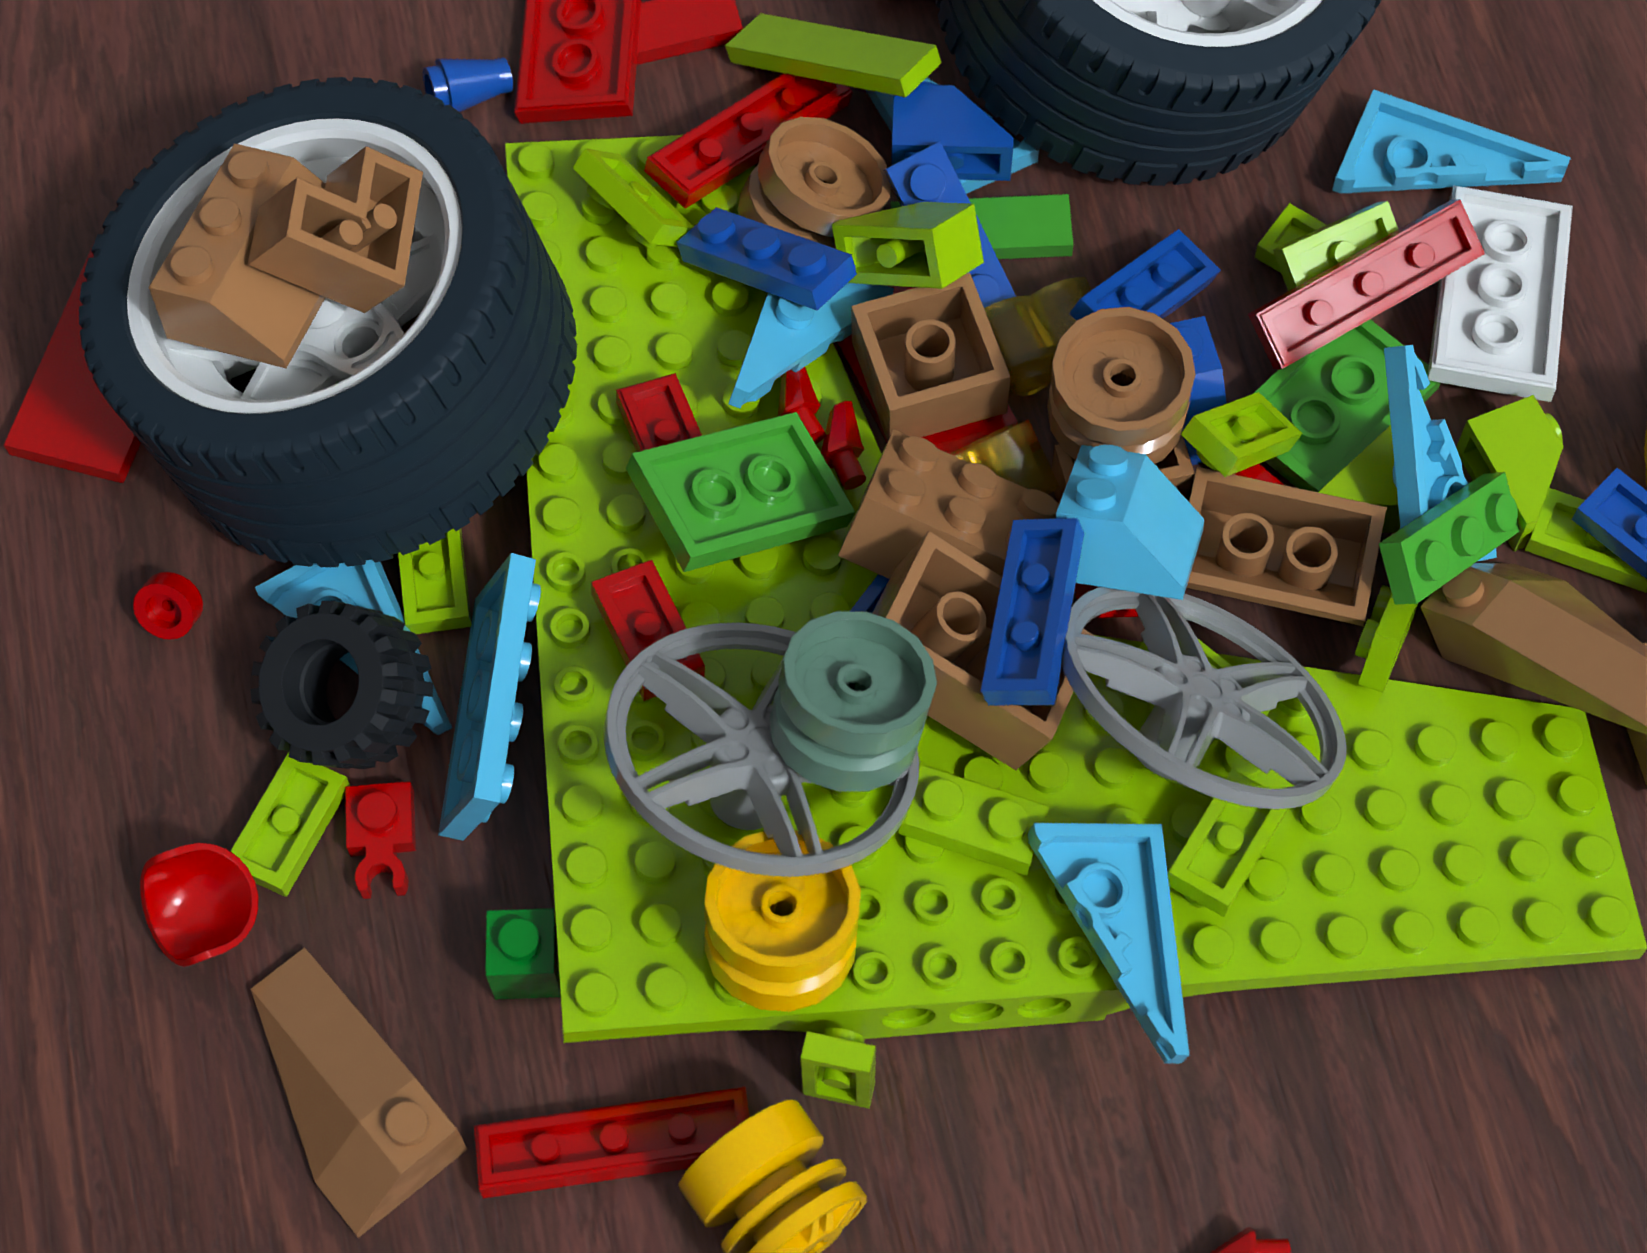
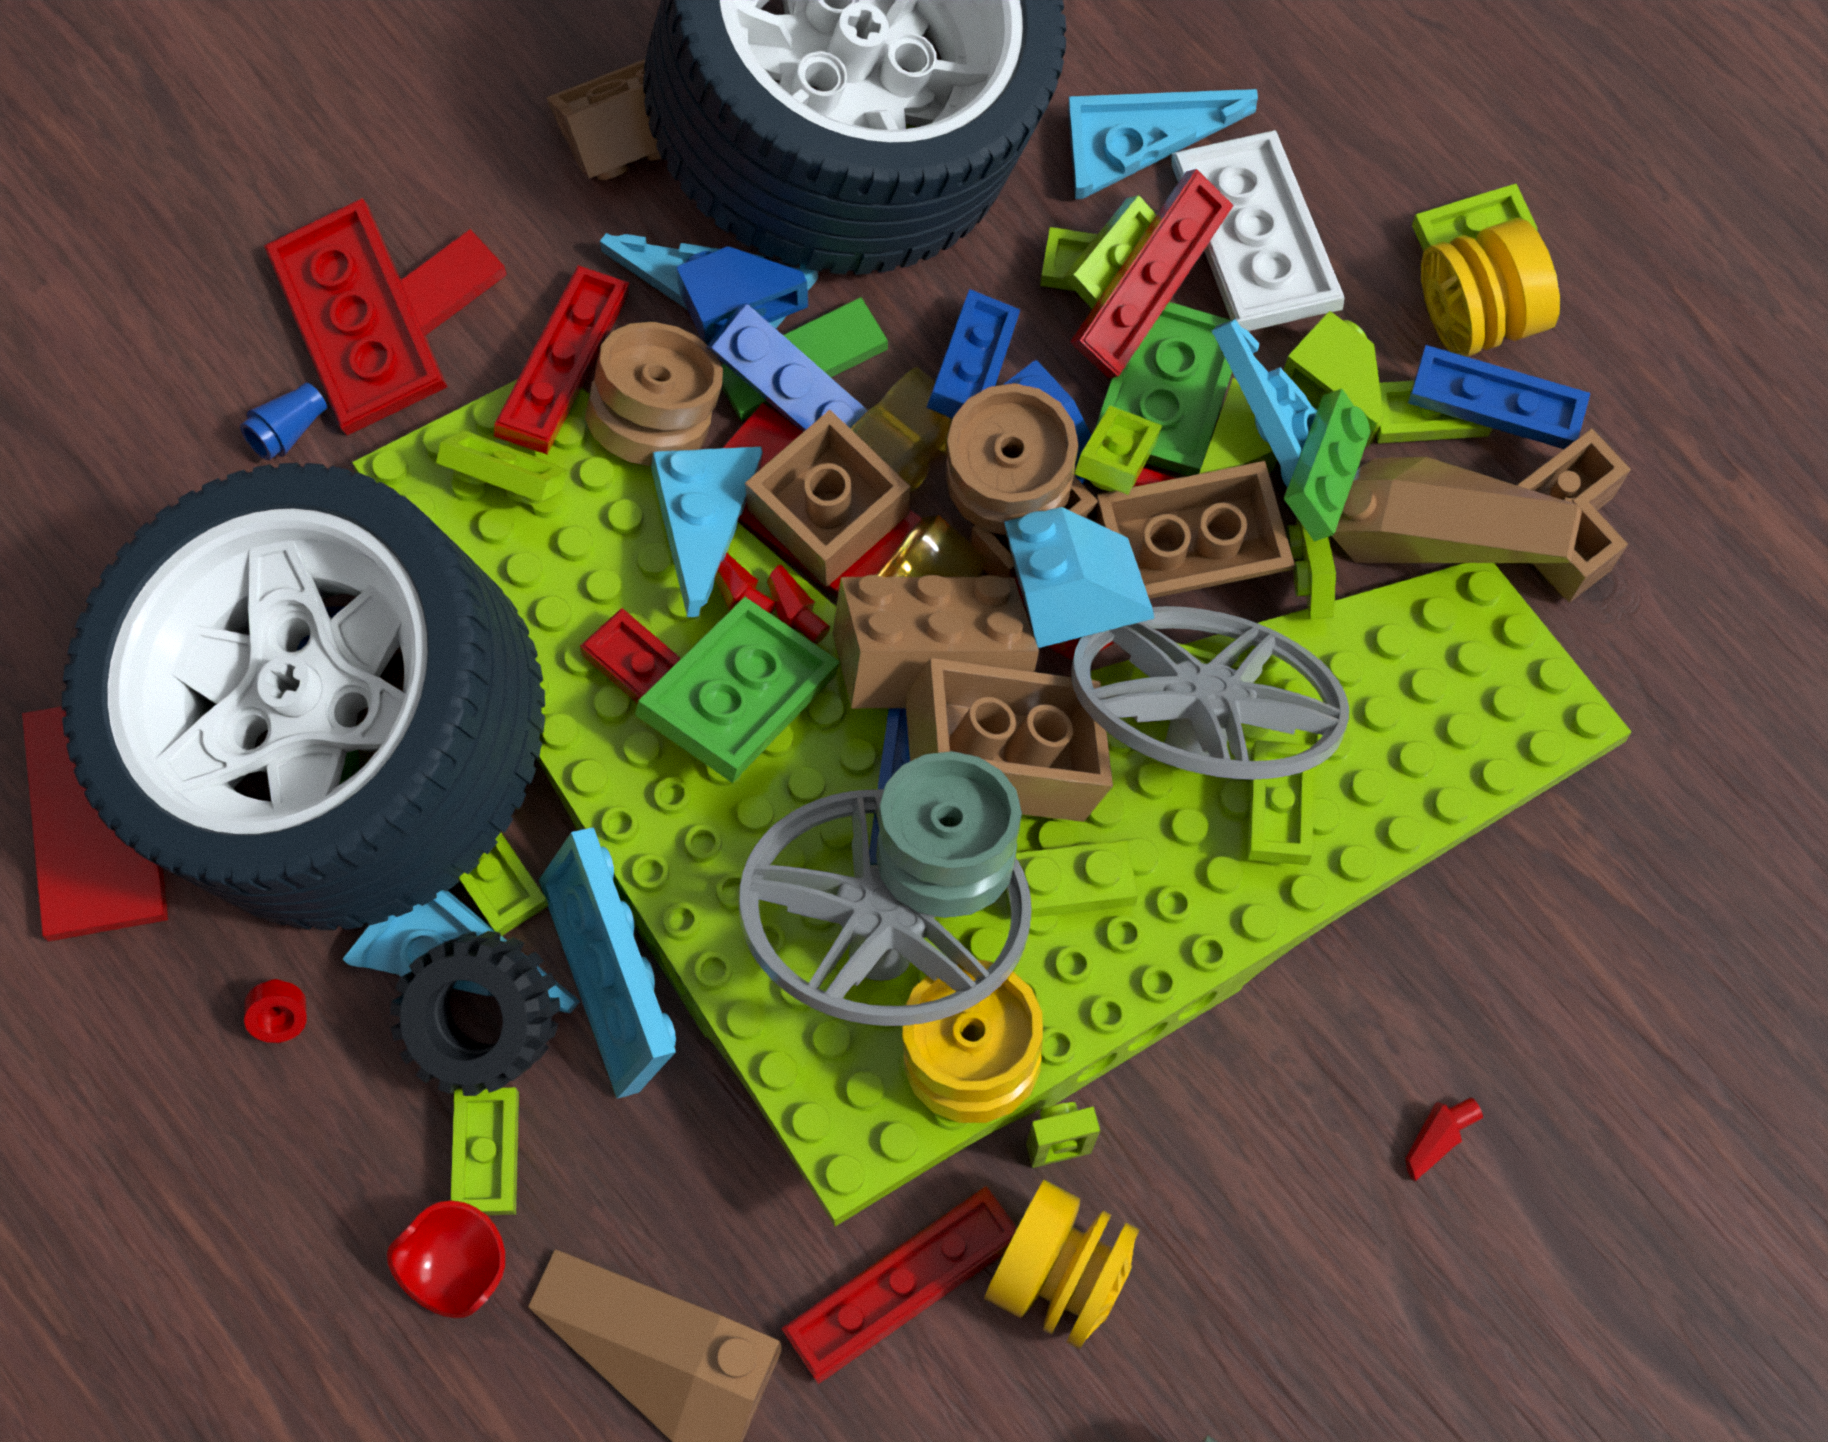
camera: 30 degrees left, 5 degrees up
(205, 283) = (230, 679): medium nougat slope -> none
(342, 238) = (308, 624): medium nougat brick -> none
(380, 826) = (563, 1116): red plate -> none
(522, 953) = (749, 1165): green brick -> none
(639, 613) = (712, 837): red plate -> none
(767, 258) = (648, 471): blue plate -> none
(834, 54) = (604, 259): lime tile -> none
(912, 244) = (766, 407): lime slope -> none
(1033, 612) = (1050, 688): blue plate -> none
(1122, 901) = (1226, 892): medium azure wing -> none

